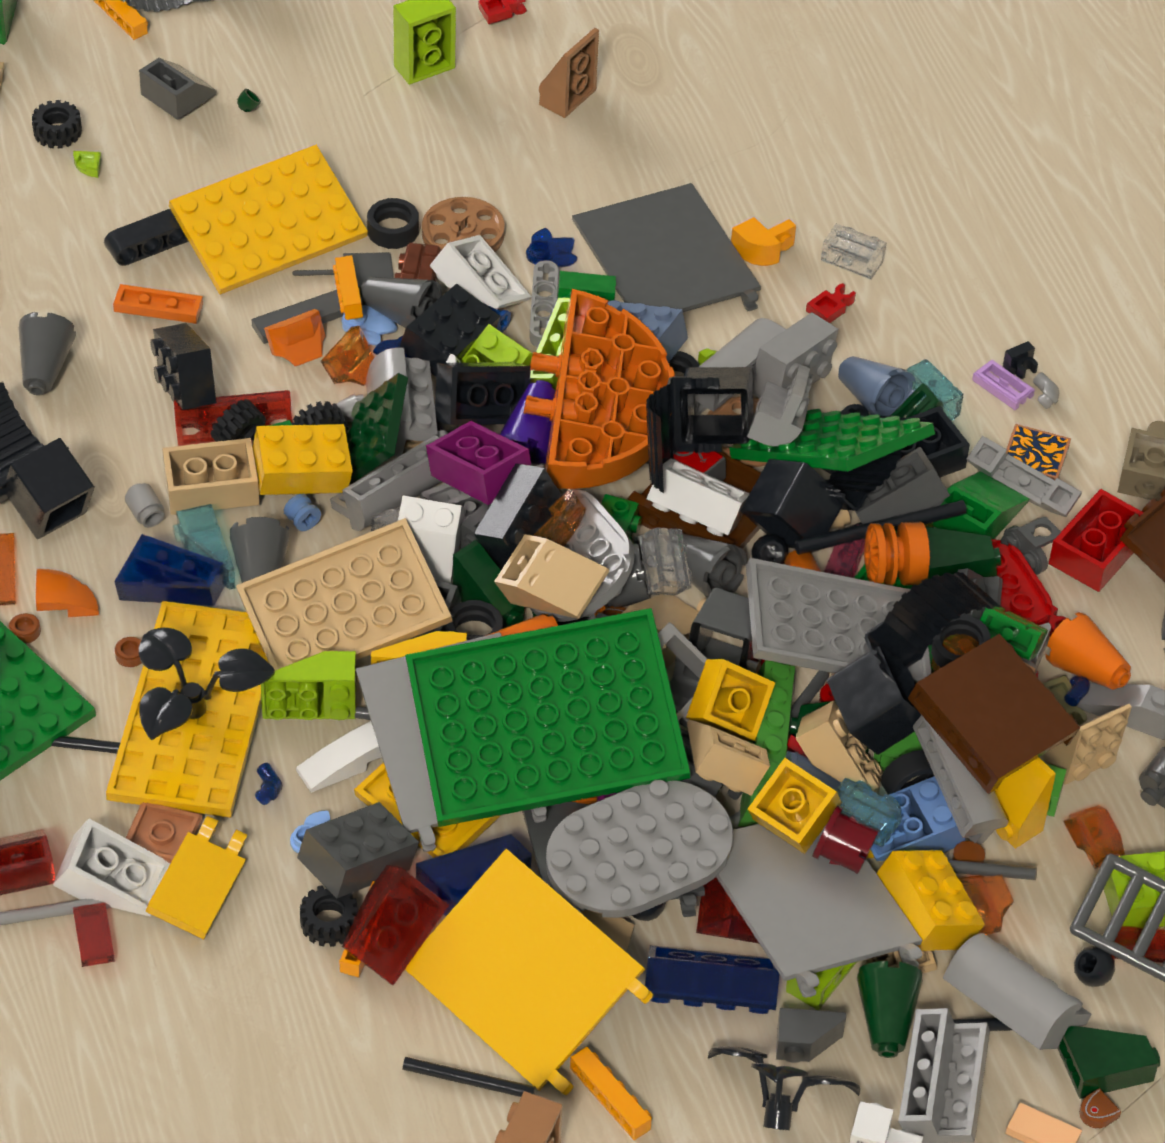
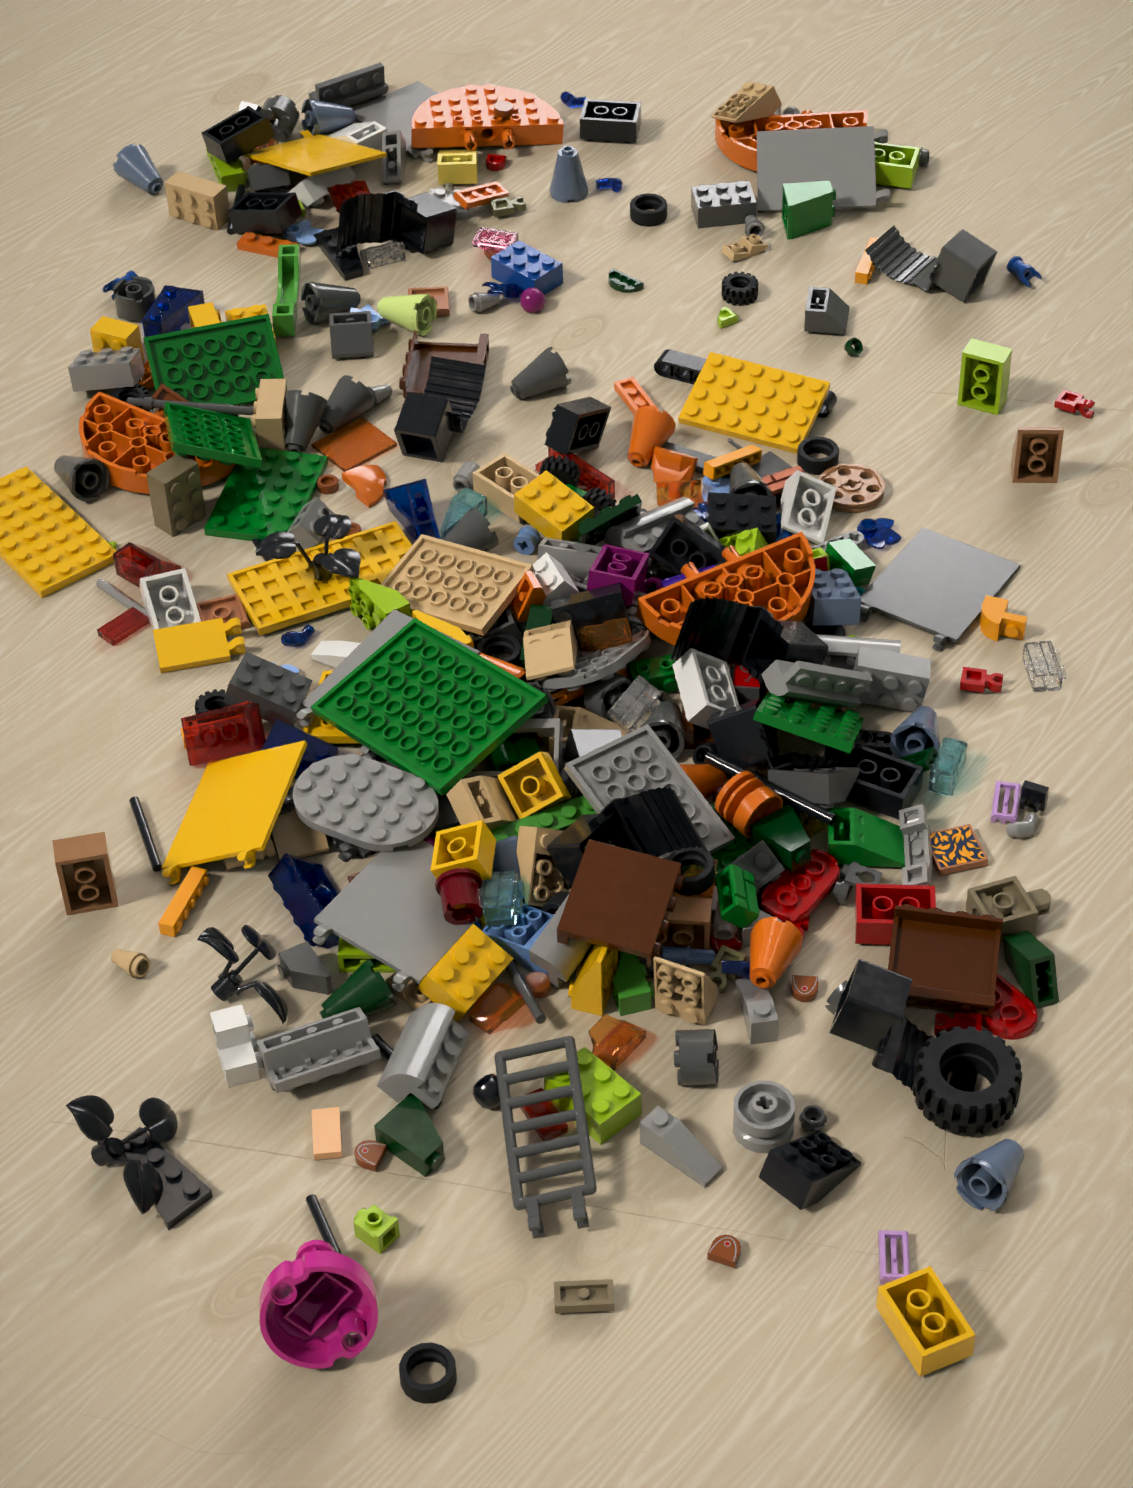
camera: 60 degrees right, 5 degrees down
(99, 674) = (303, 524): none -> light grey brick
(237, 325) = (648, 431): none -> orange cone
(437, 546) = (527, 593): none -> orange slope
(1133, 656) = (804, 987): none -> dark orange tile

